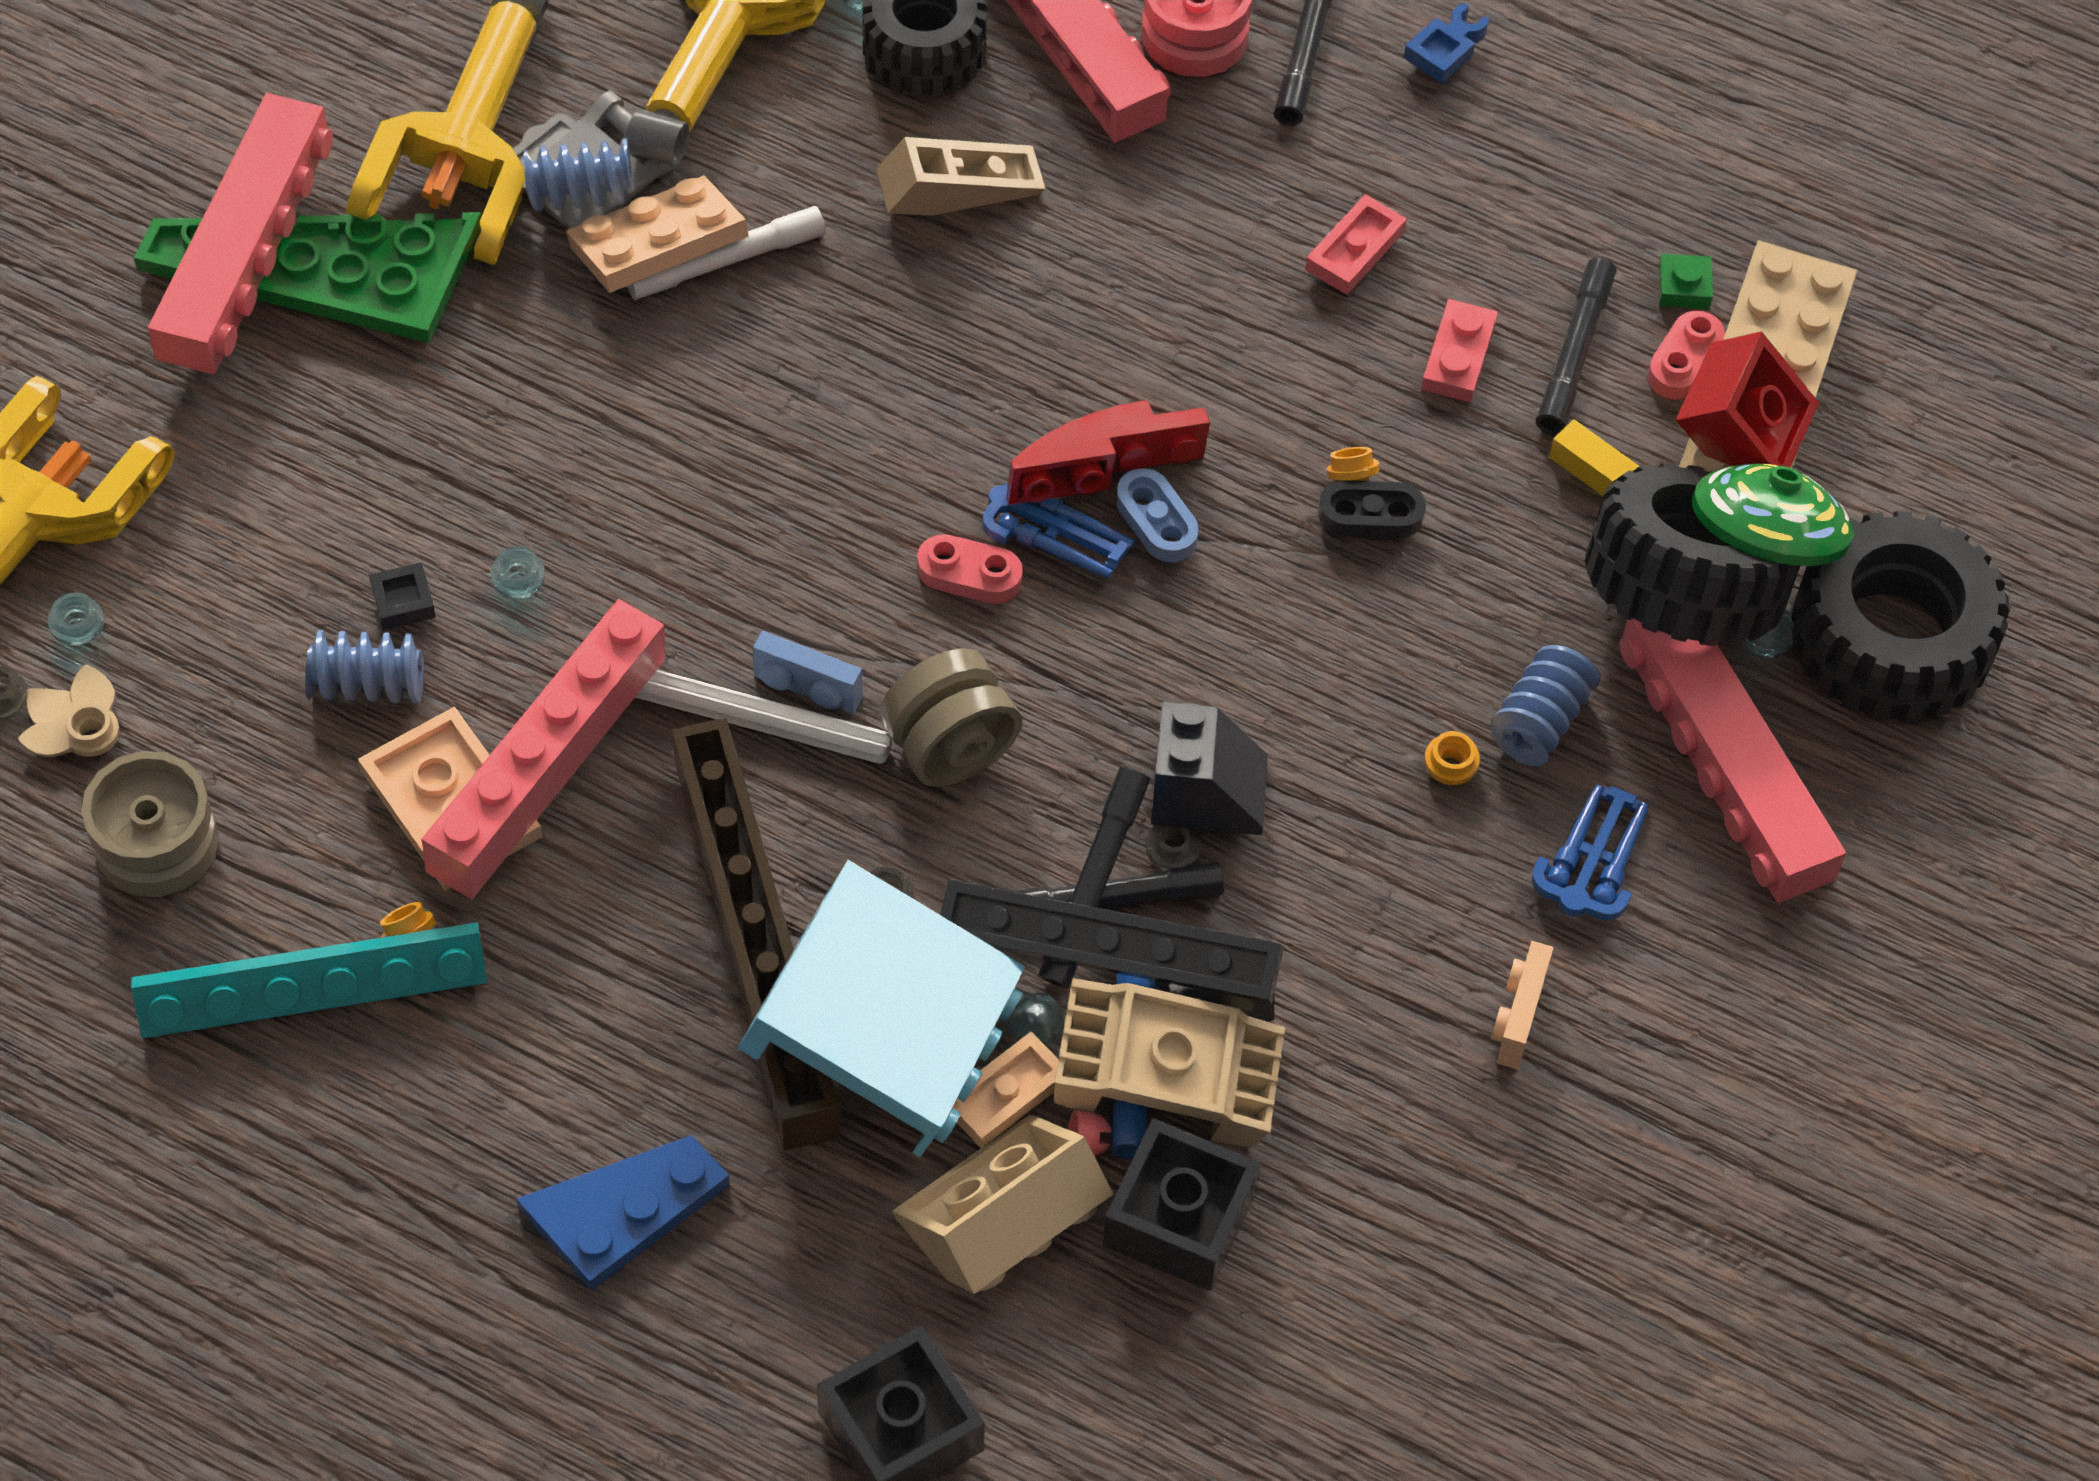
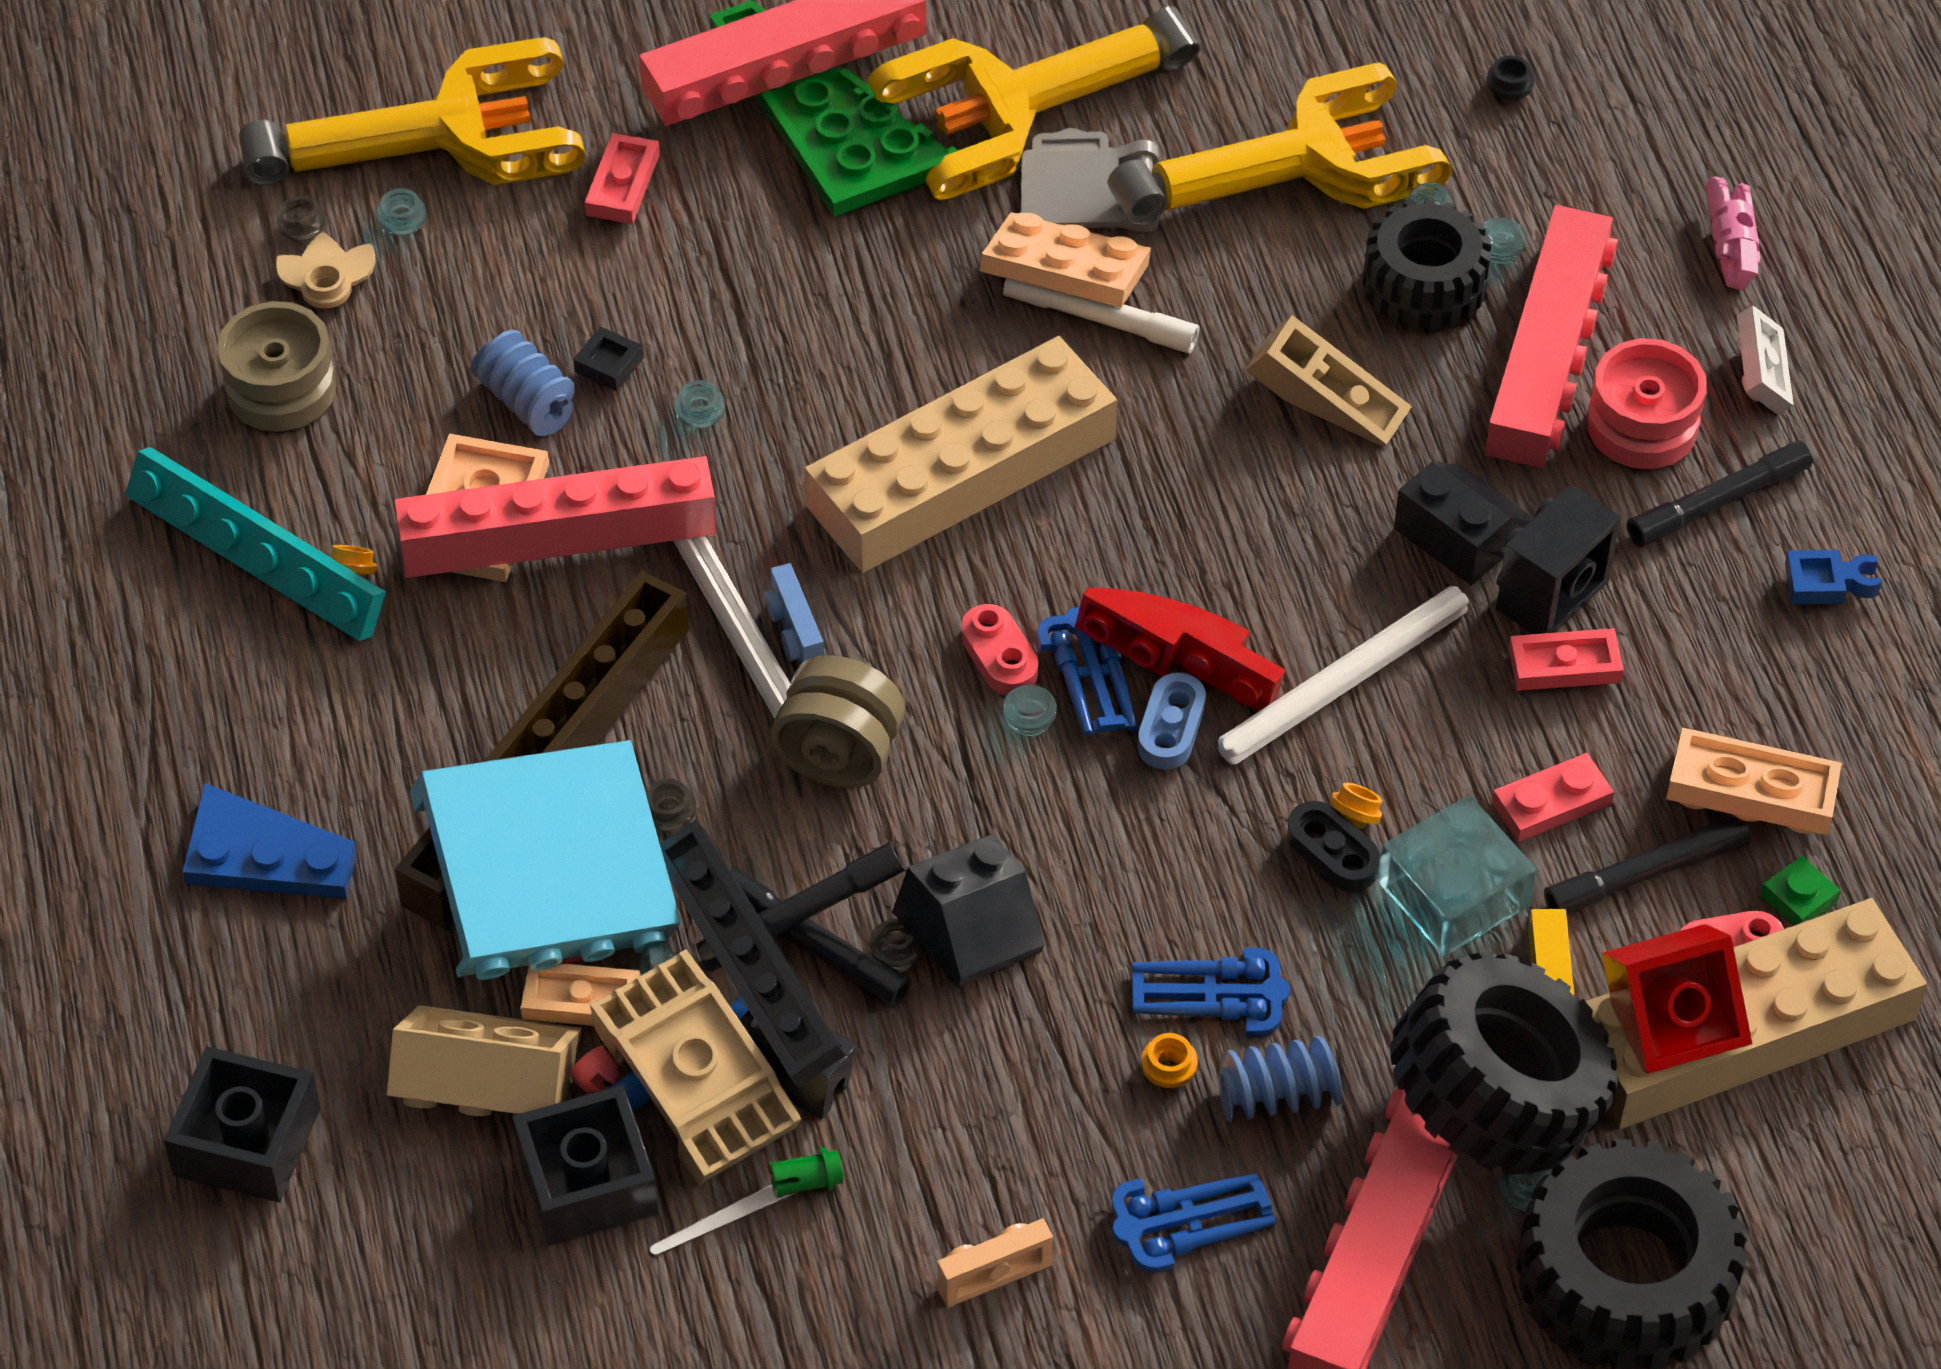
camera: 50 degrees right, 5 degrees down
(227, 445) = (622, 178): none -> coral plate
(578, 176) = (1050, 176): medium blue piece -> none
(768, 446) = (960, 453): none -> tan brick
(1048, 593) = (1029, 709): none -> clear light blue plate
(1169, 204) = (1457, 519): none -> black slope
(1224, 383) = (1342, 675): none -> white axle
(1282, 175) = (1557, 561): none -> black brick
(1308, 1101) = (733, 1212): none -> white sticker
(1328, 1054) = (806, 1173): none -> green pin
(1421, 636) = (1271, 992): none -> blue piece
(1479, 457) = (1456, 875): none -> clear light blue brick
(1580, 226) = (1754, 782): none -> light nougat plate
(1773, 514) = (1583, 1079): green dish -> none

